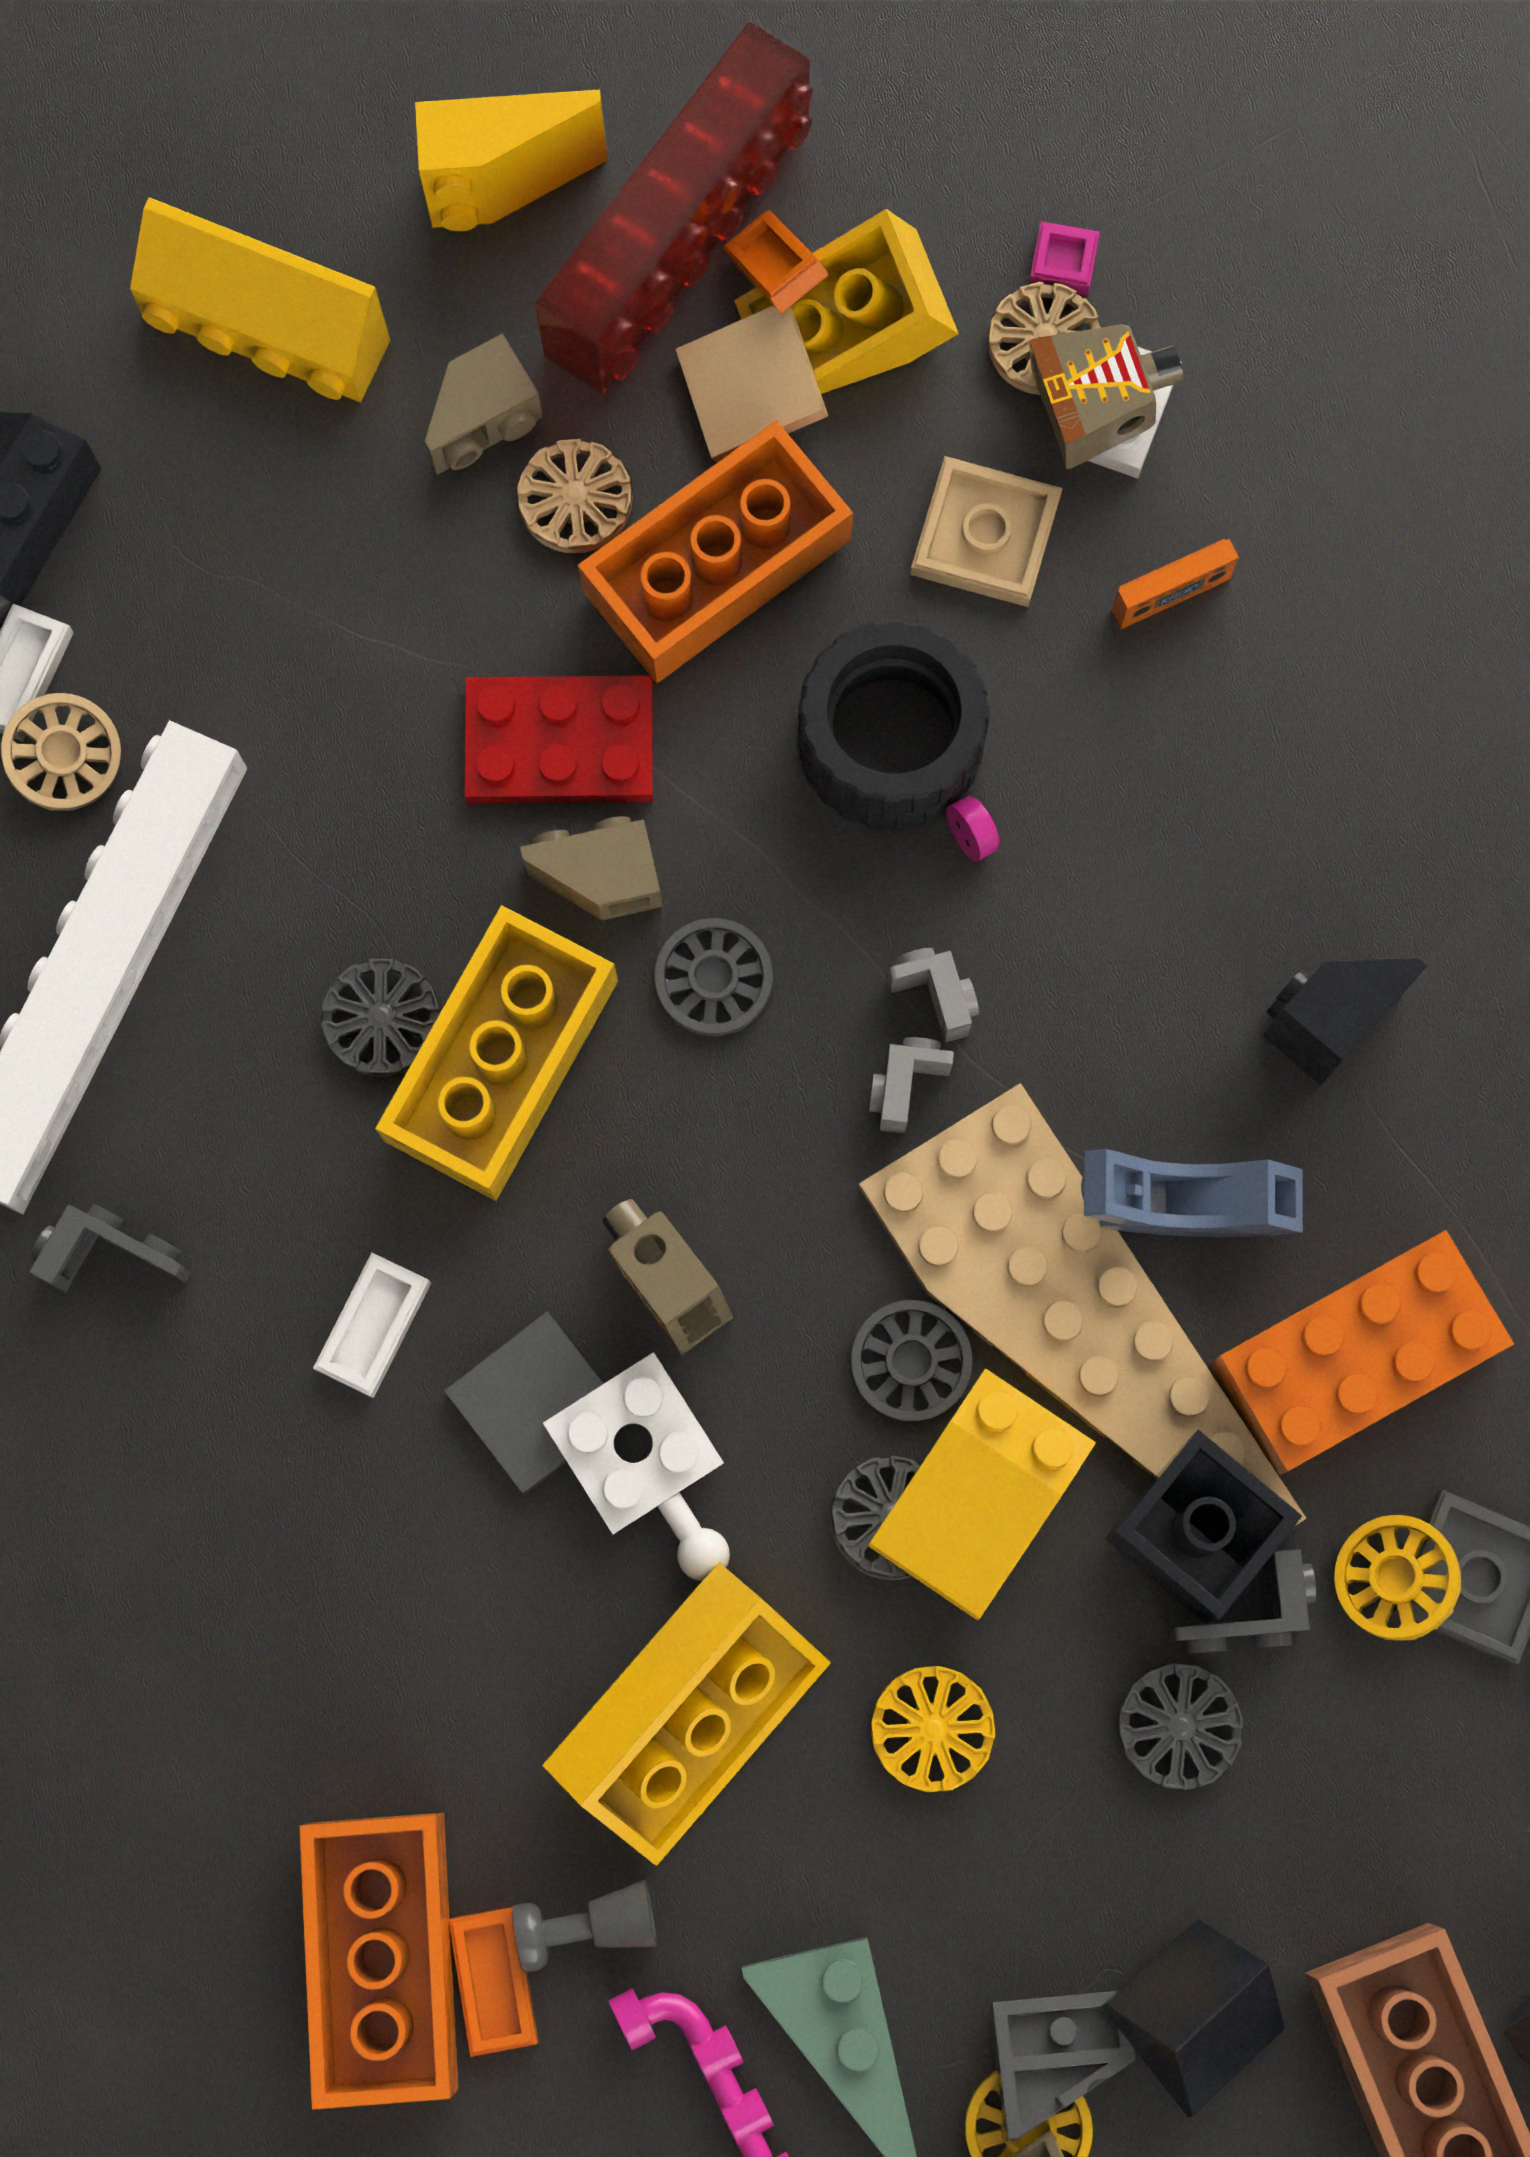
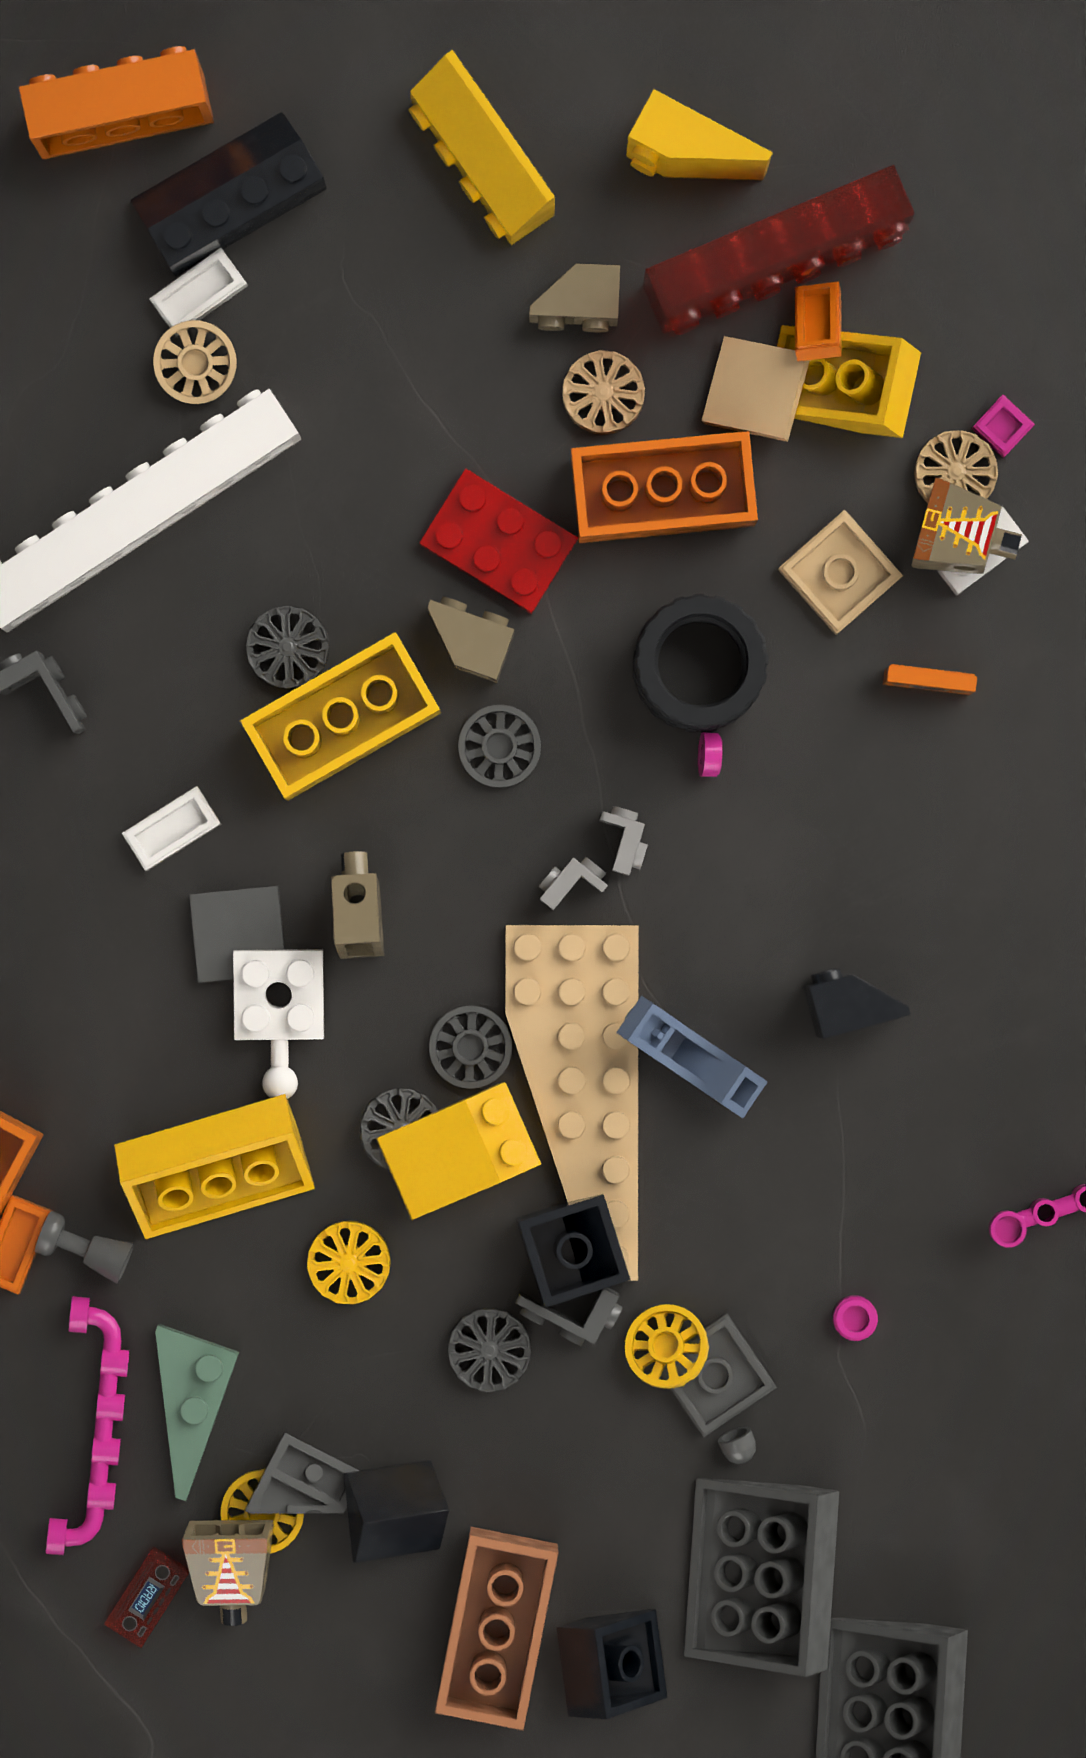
camera: 25 degrees right, 10 degrees up
(1361, 1353) = (730, 1208): orange brick -> none

